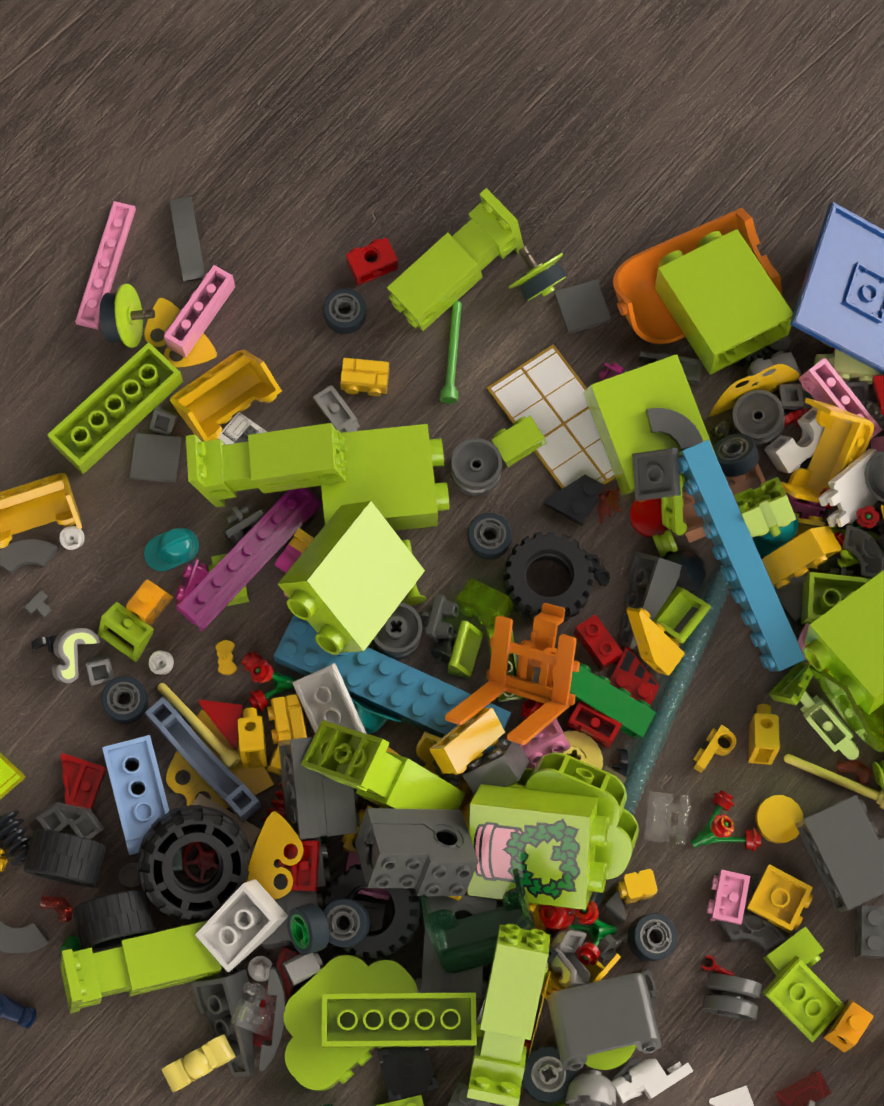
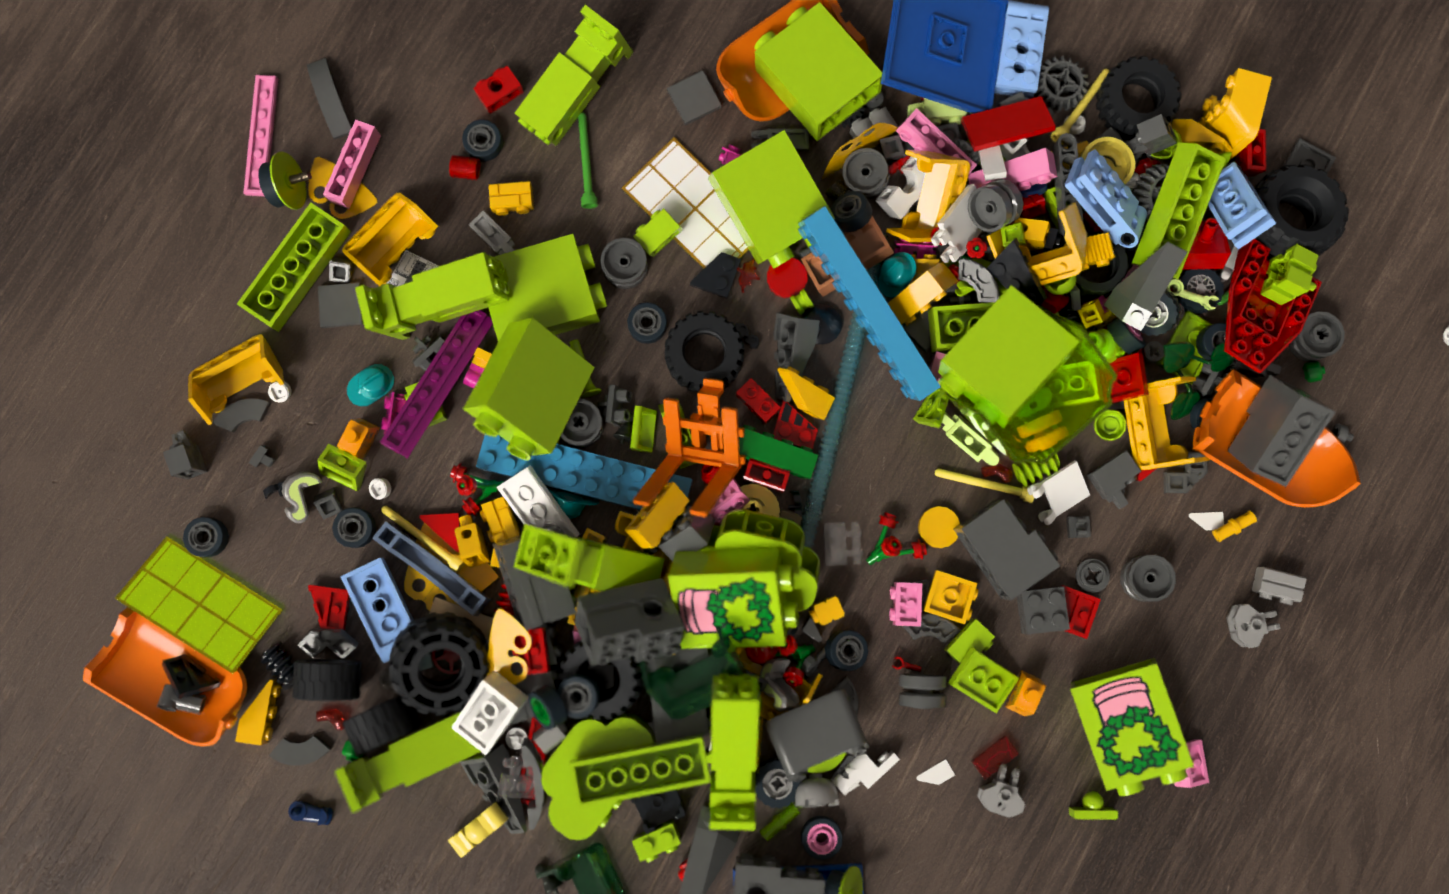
camera: 10 degrees left, 10 degrees up
(225, 661) = (436, 473): yellow piece -> none
(320, 336) = (464, 167): none -> red piece
(484, 602) = (652, 385): clear neon green brick -> none
(540, 277) = (651, 77): piece -> none
(656, 474) = (784, 244): dark grey tile -> none
(673, 512) = (801, 264): lime plate -> none
(674, 425) = (793, 196): dark grey tile -> none
(676, 608) = (819, 361): lime tile -> none
(704, 756) = (865, 485): yellow plate -> none
(763, 736) = (916, 464): yellow torso -> none
(765, 508) = (885, 258): lime brick -> none

